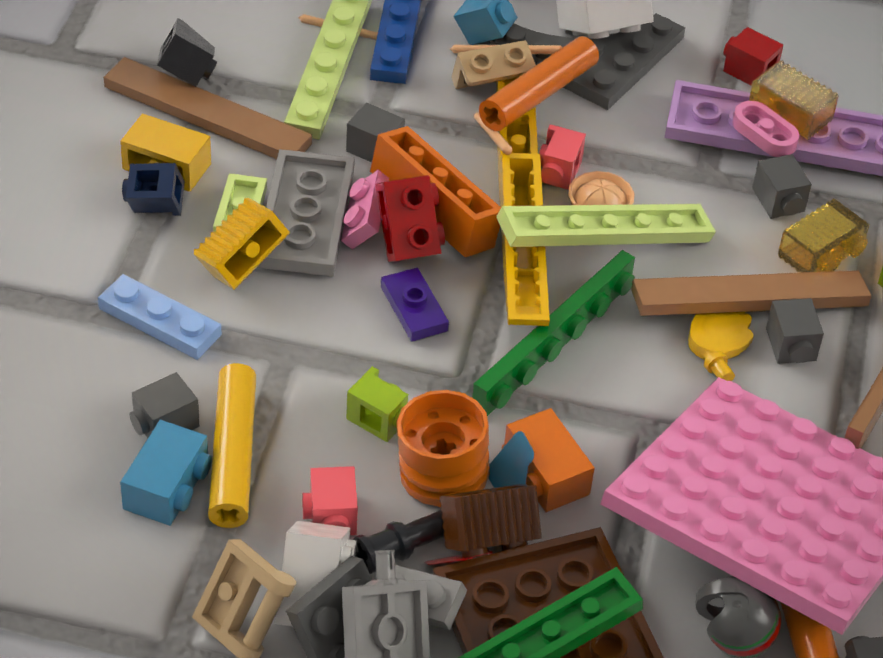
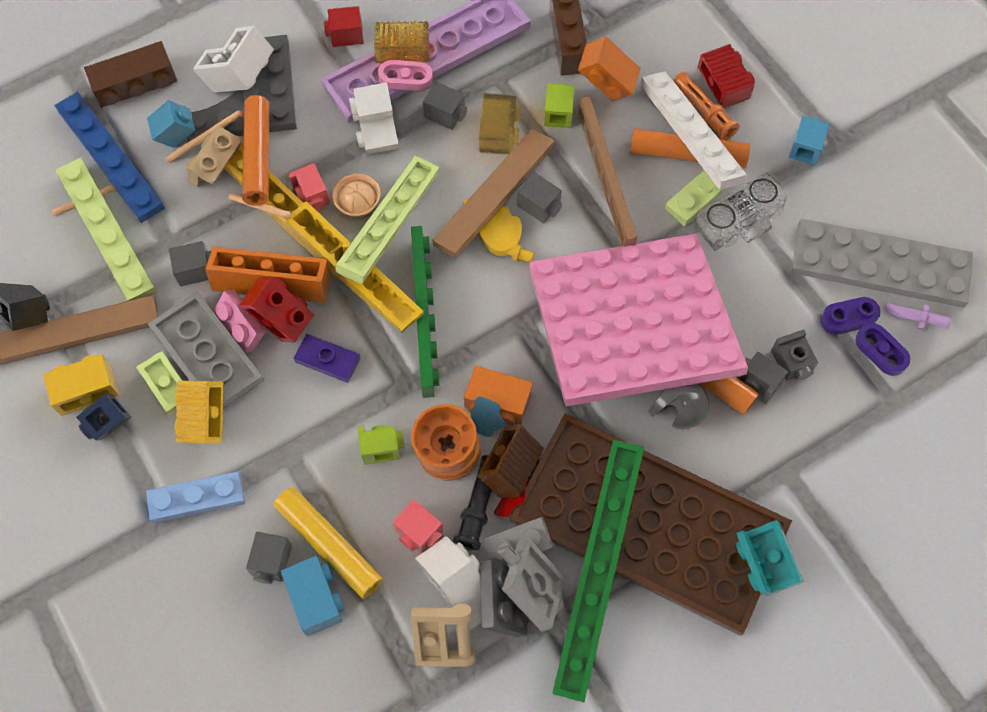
camera: 40 degrees left, 20 degrees up
(693, 138) = (375, 114): none -> white brick

